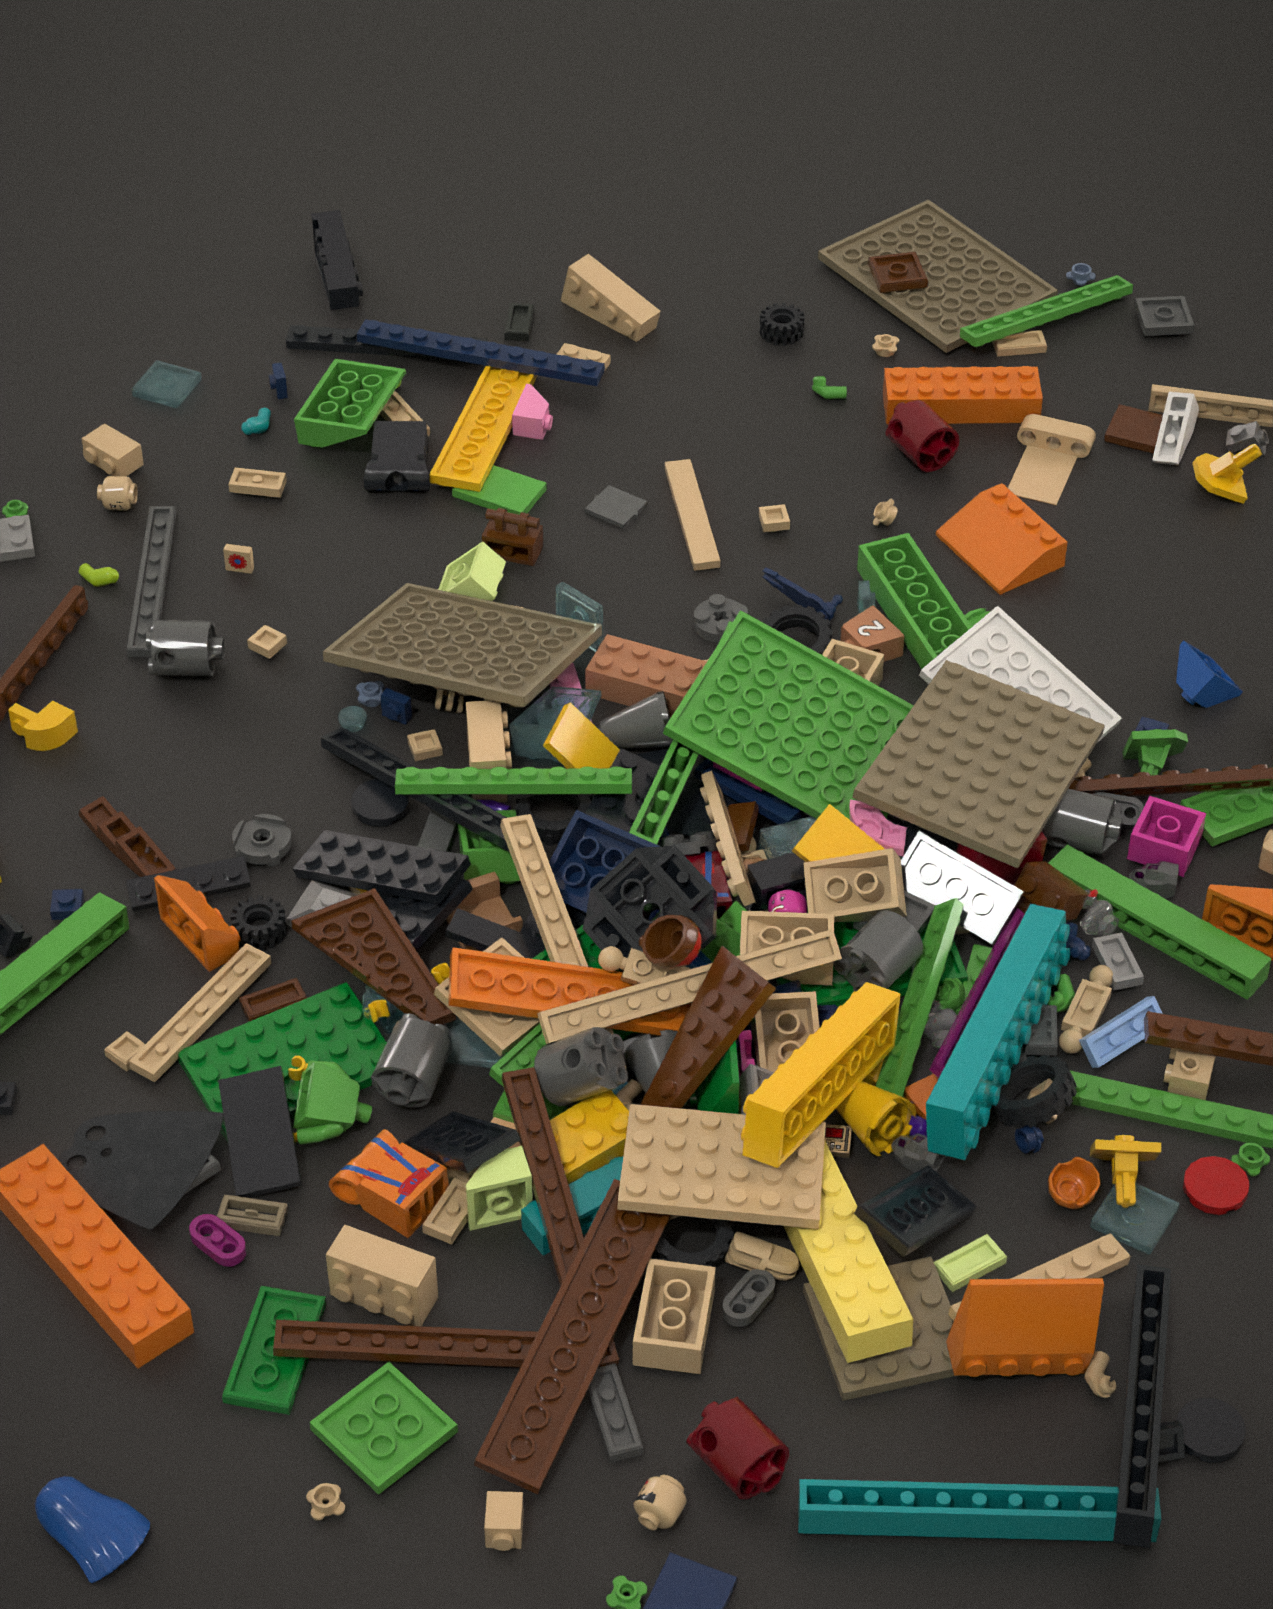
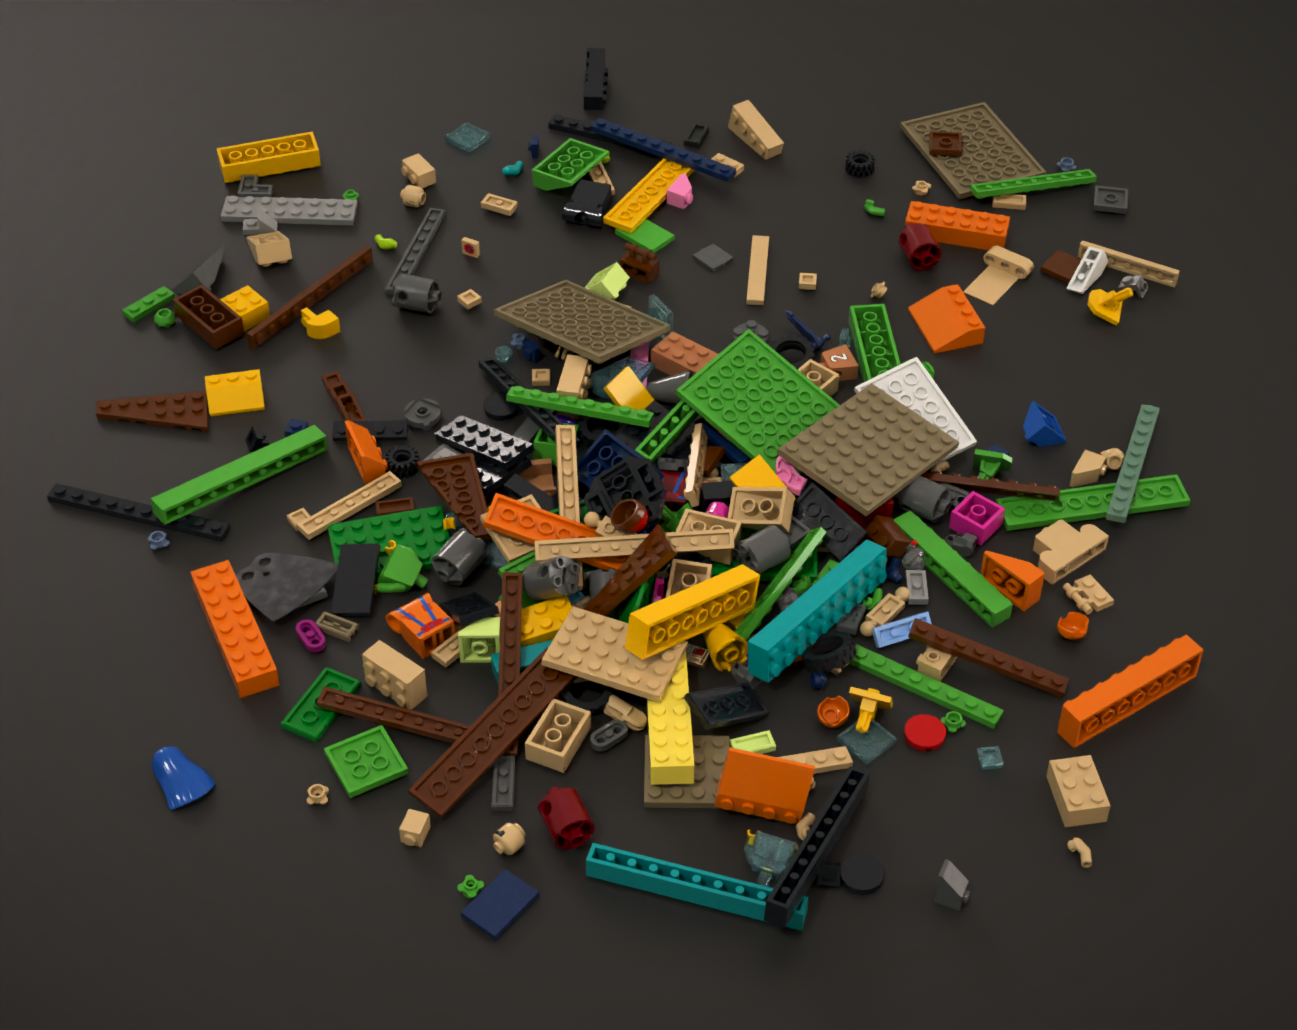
camera: 15 degrees right, 0 degrees up
(1071, 1434) = (768, 855): none -> clear light blue torso

